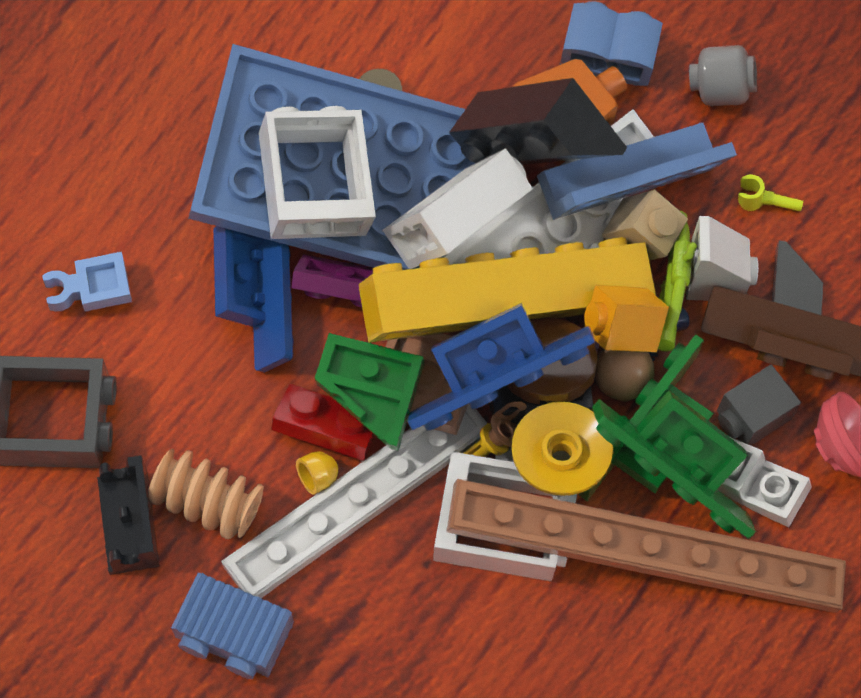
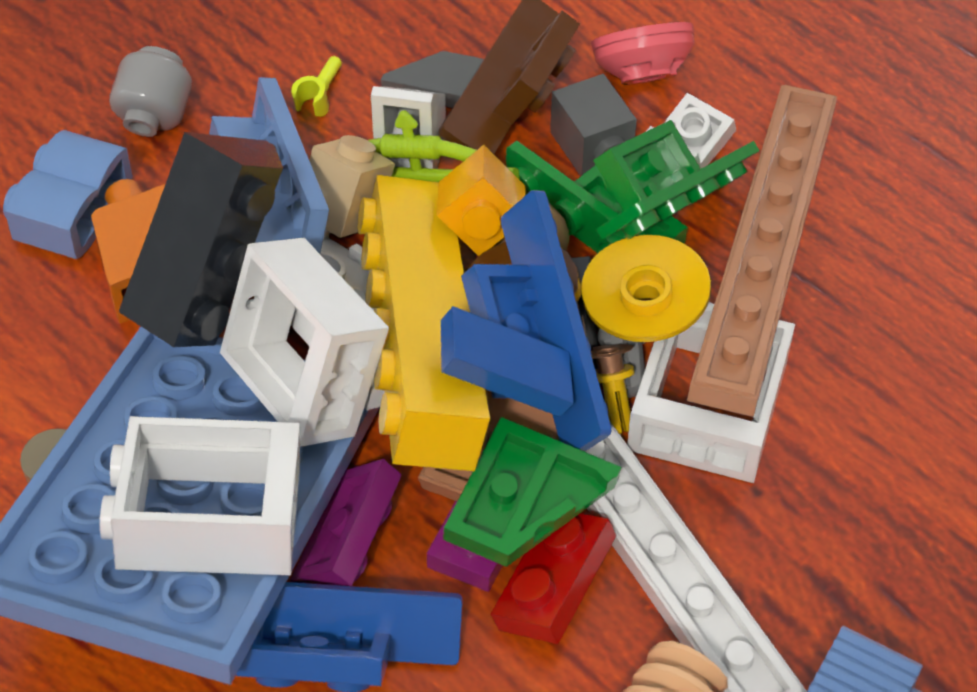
camera: 80 degrees left, 15 degrees down
(317, 471) = (628, 594): yellow hinge -> none
(439, 340) = (505, 361): none -> blue tile

